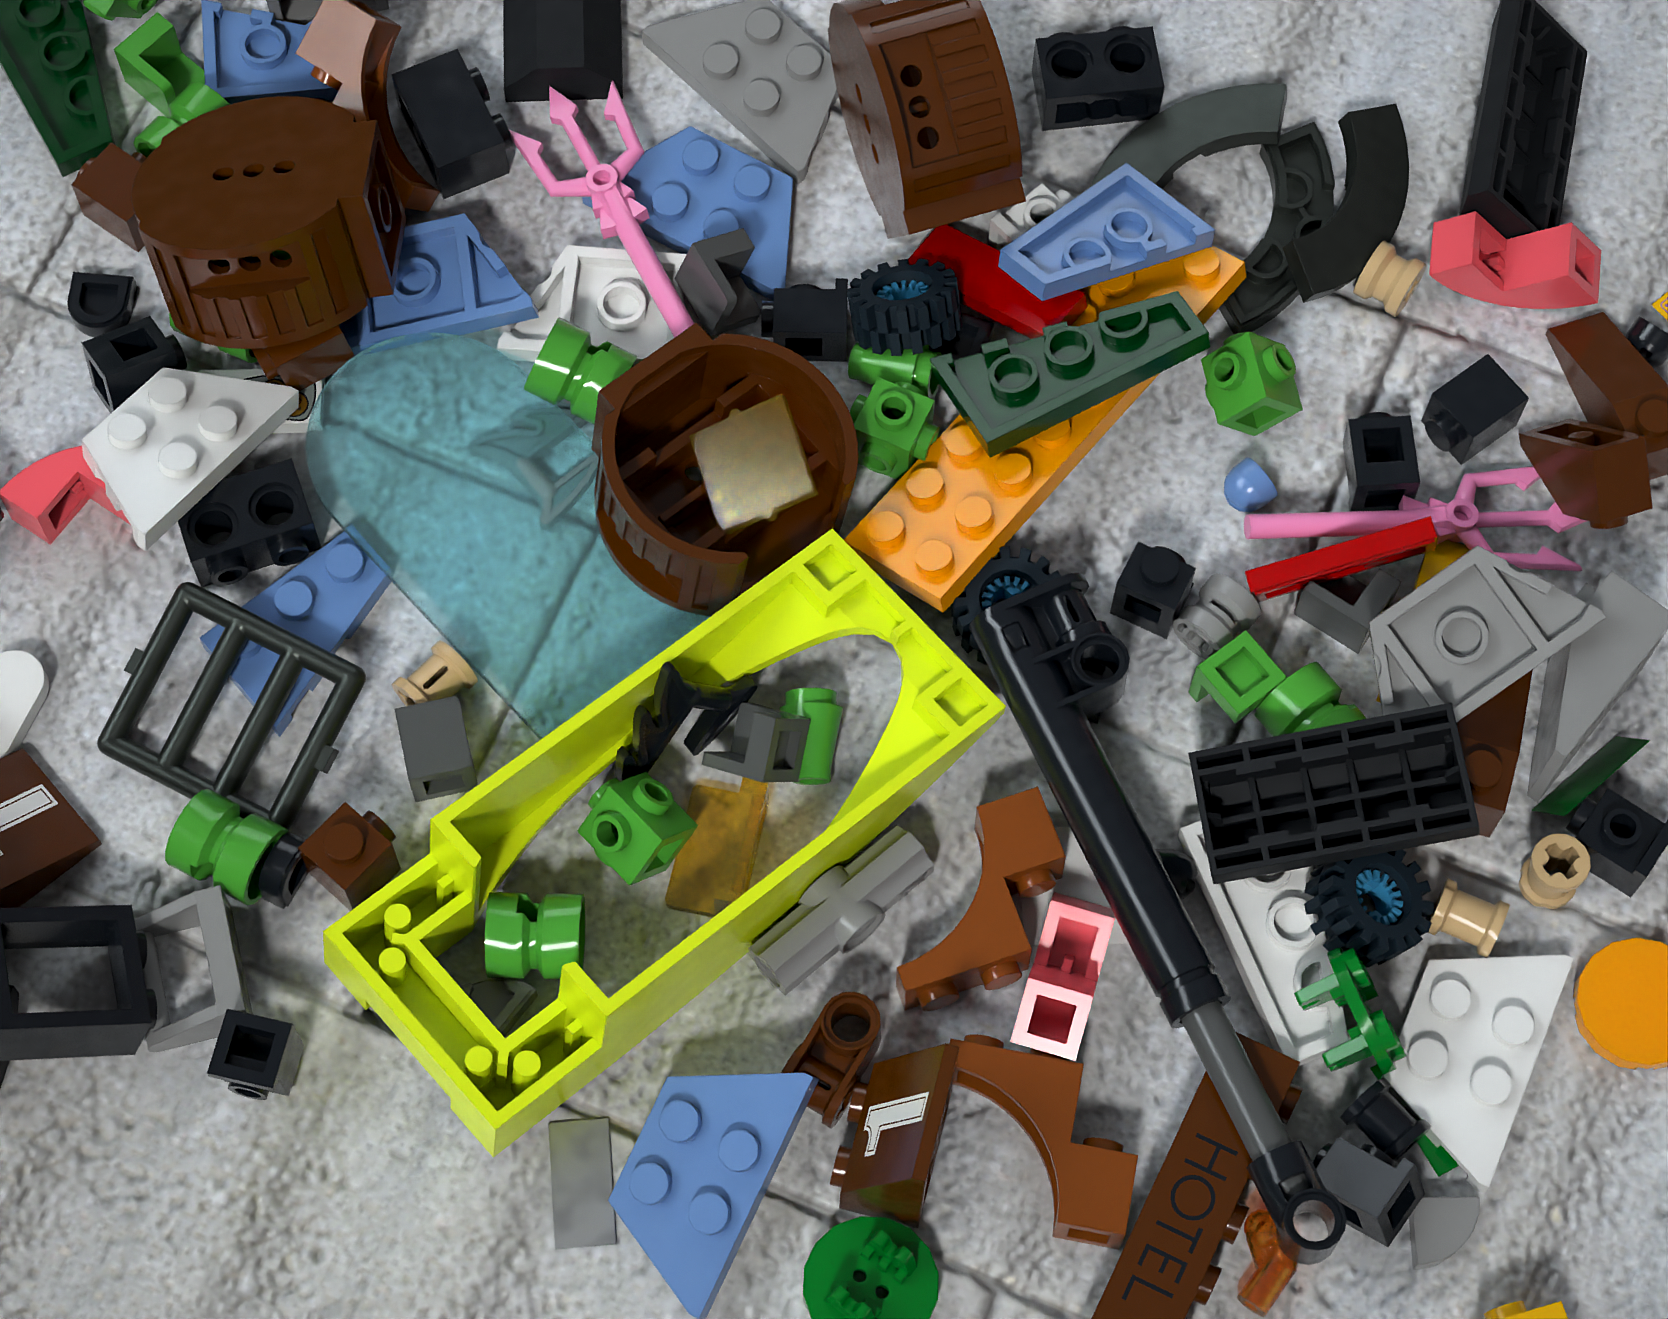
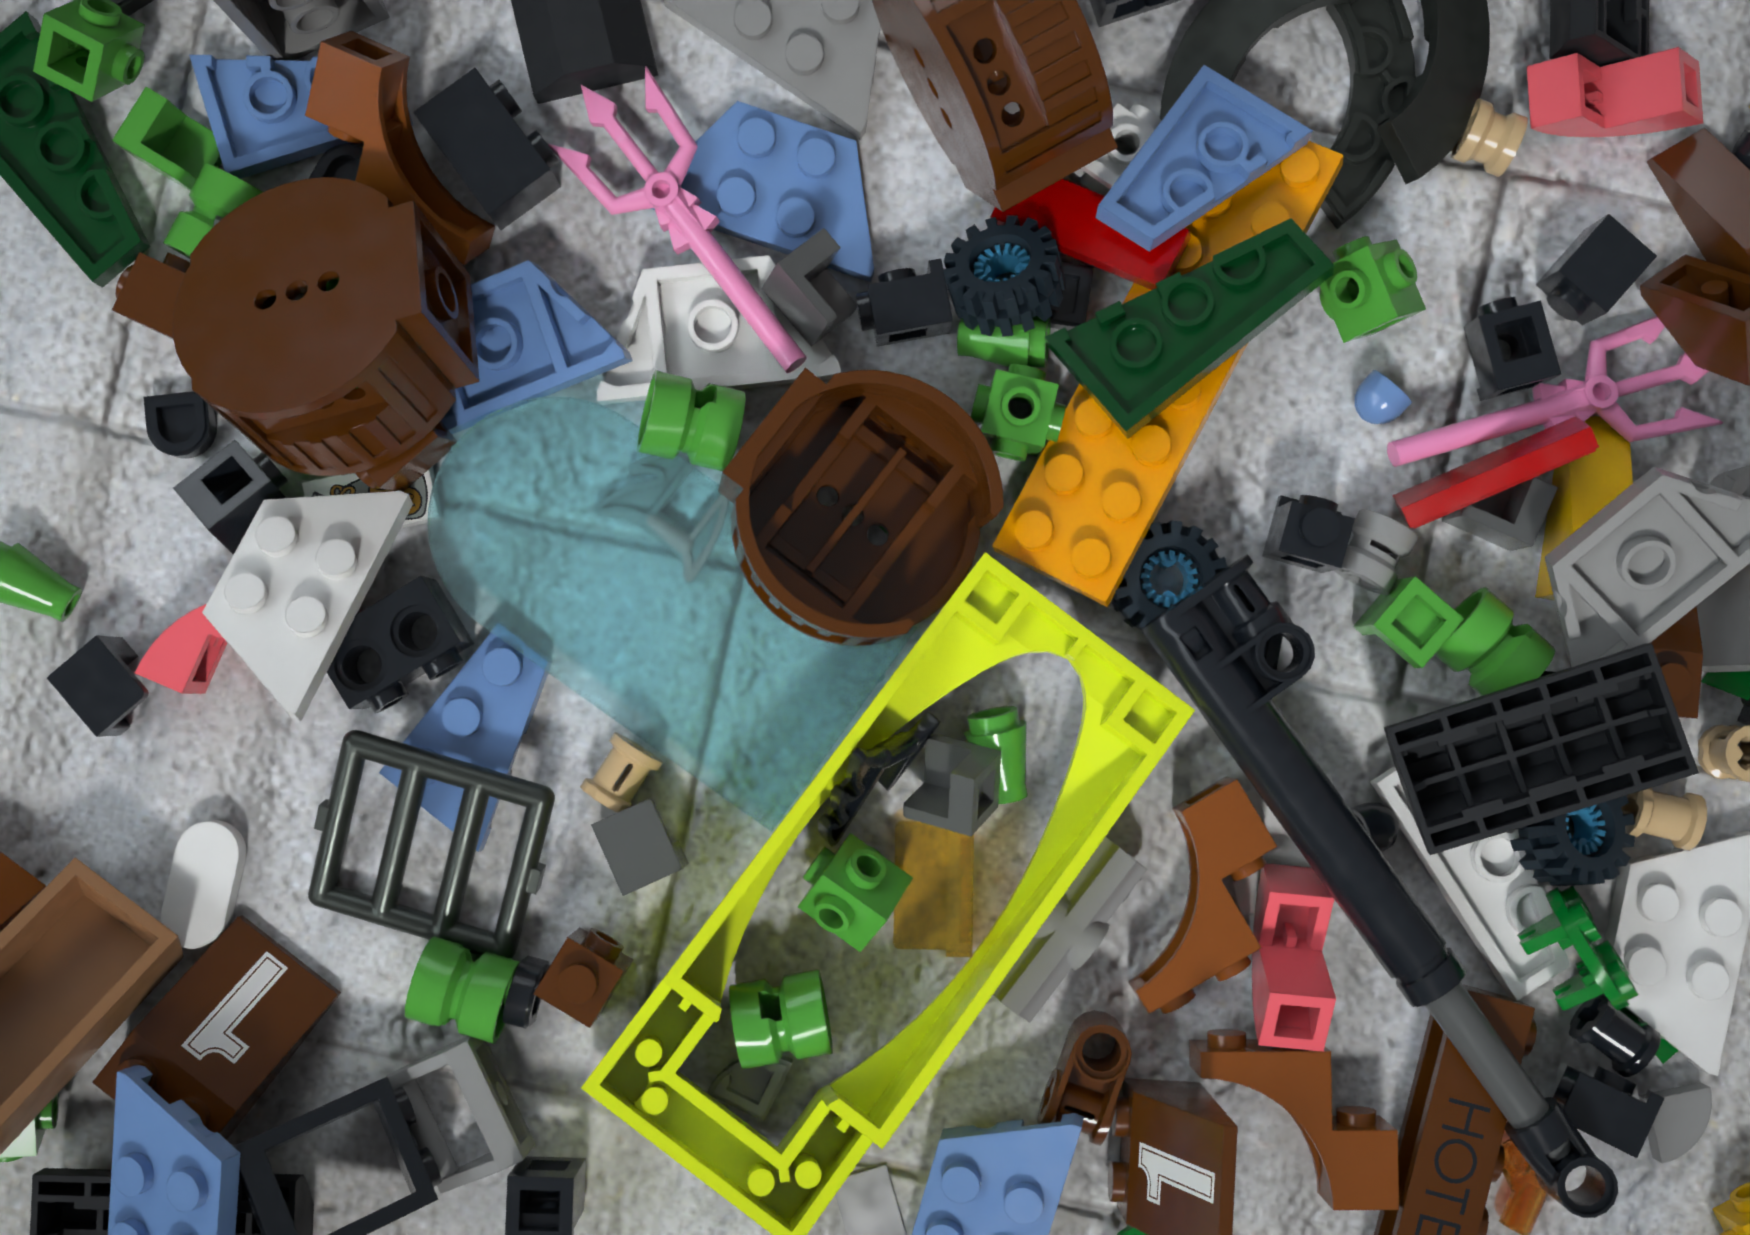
camera: 15 degrees left, 20 degrees up
(753, 464) = (892, 499): clear yellow piece -> none

